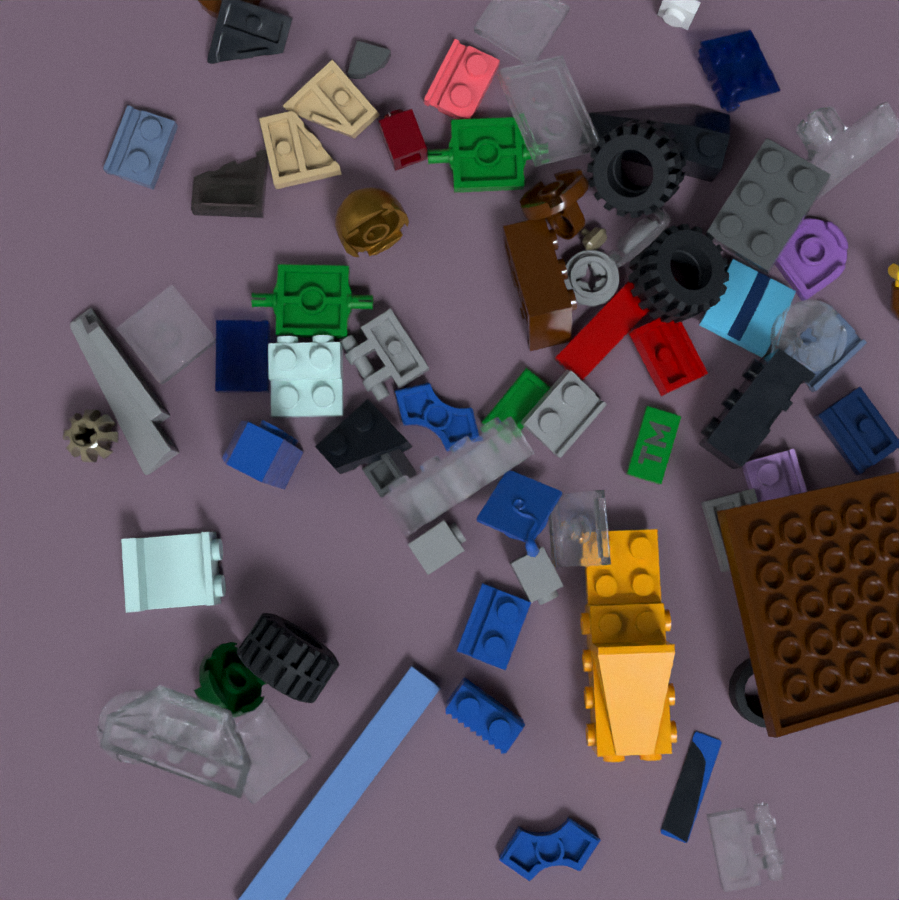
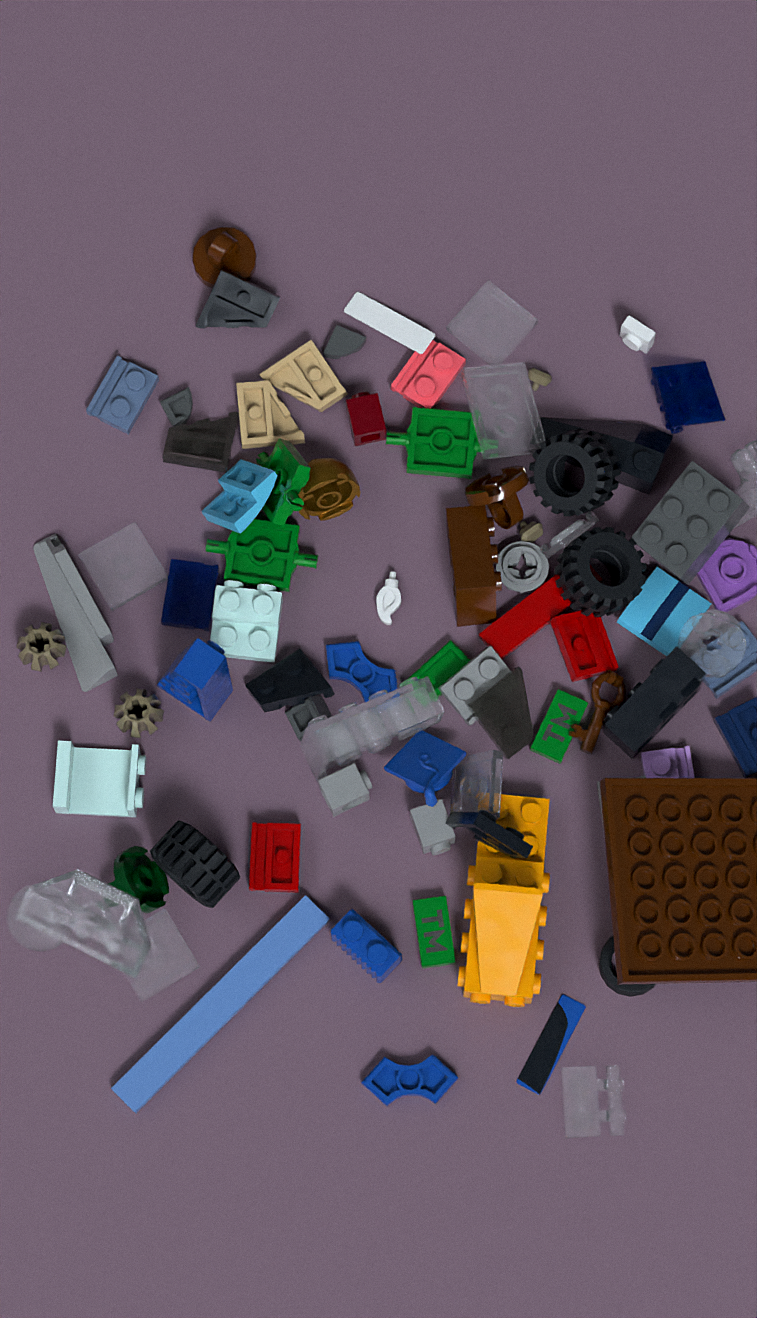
camera: 10 degrees right, 10 degrees down
(195, 490) = (127, 713): none -> dark tan piece
(202, 152) = (178, 407): none -> dark grey tile
(284, 242) = (243, 497): none -> medium azure slope
(322, 220) = (291, 476): none -> green plate
(373, 630) = (275, 857): none -> red plate
(394, 349) = (331, 608): light grey plate -> none
(413, 31) = (389, 322): none -> white sticker
(454, 331) = (388, 599): none -> white piece
(493, 626) = (387, 871): blue plate -> none
(552, 685) = (434, 932): none -> green tile
(579, 70) = (539, 377): none -> dark tan rock
(596, 440) = (505, 713): none -> clear smoke wing
(600, 580) = (490, 833): none -> black wing
(696, 420) = (602, 707): none -> reddish brown piece

